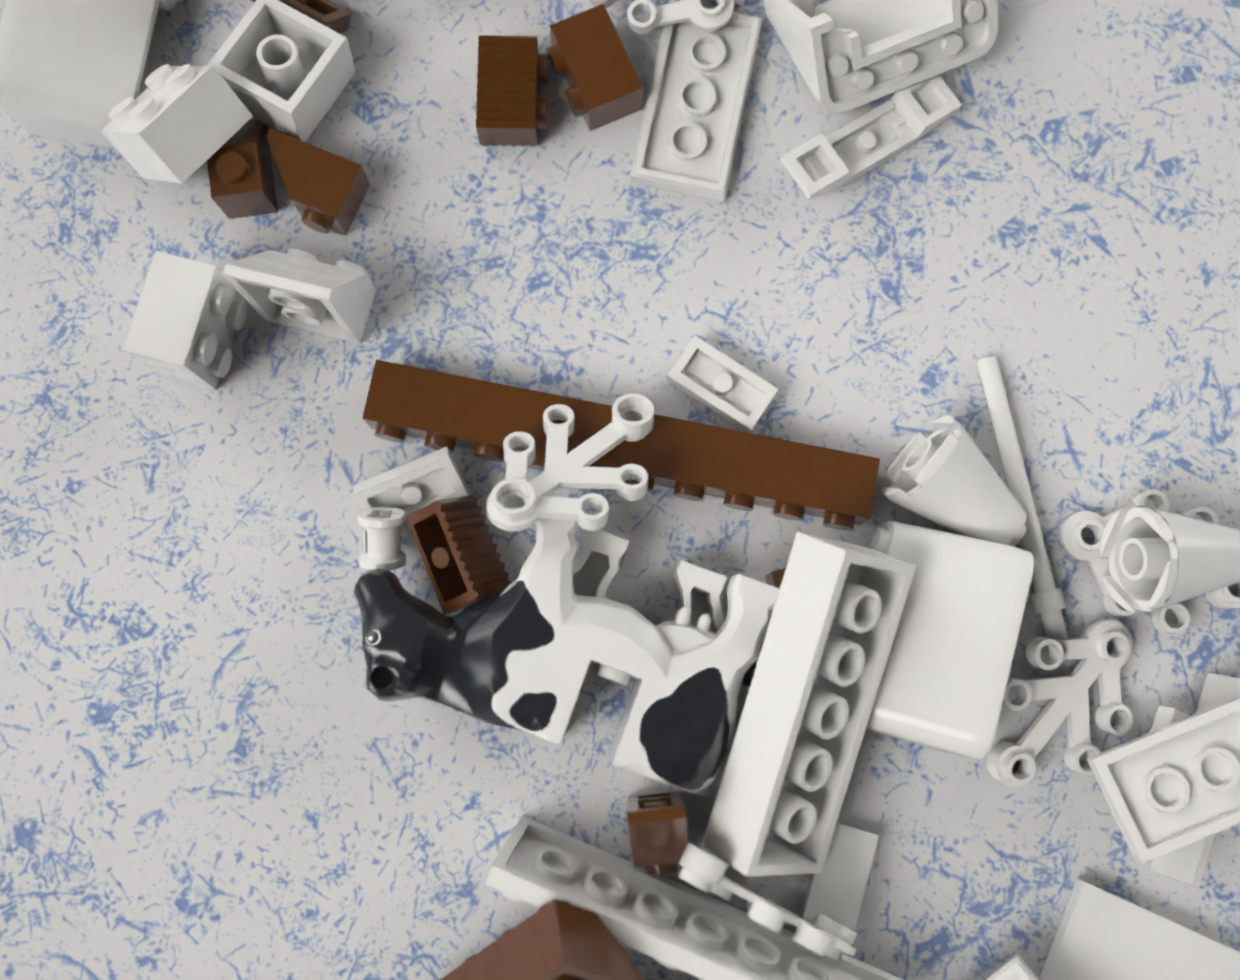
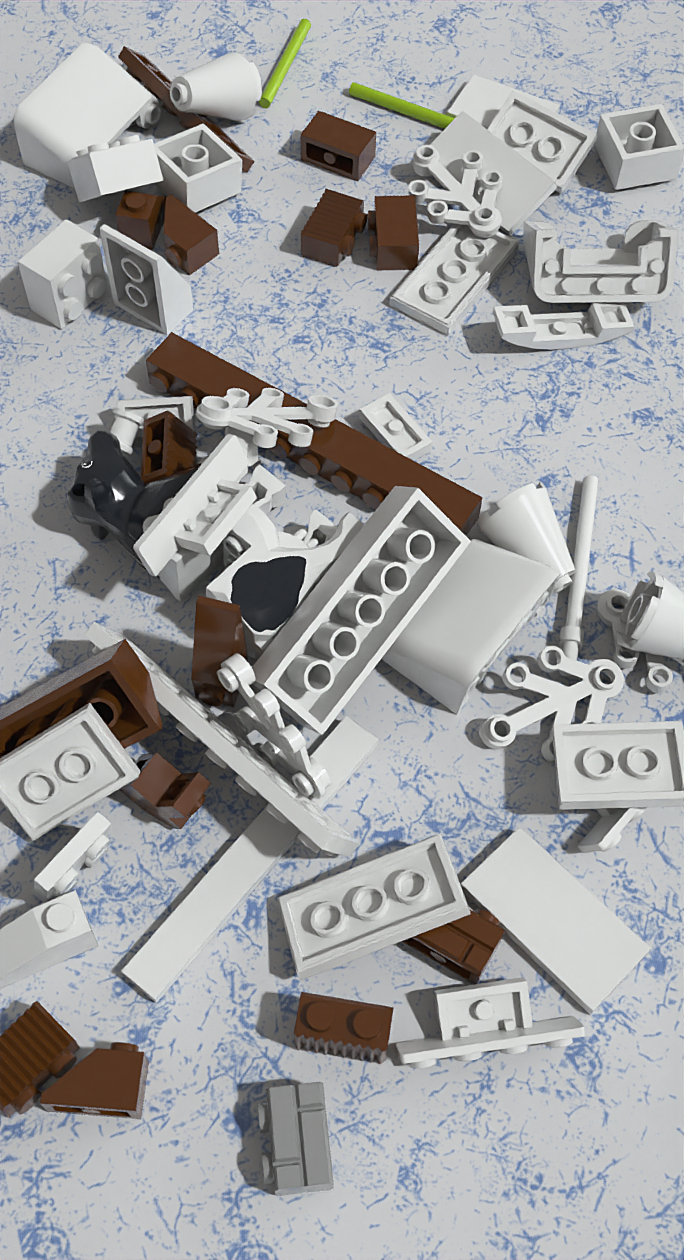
camera: 25 degrees right, 20 degrees down
(570, 671) = (201, 510): none -> white bracket

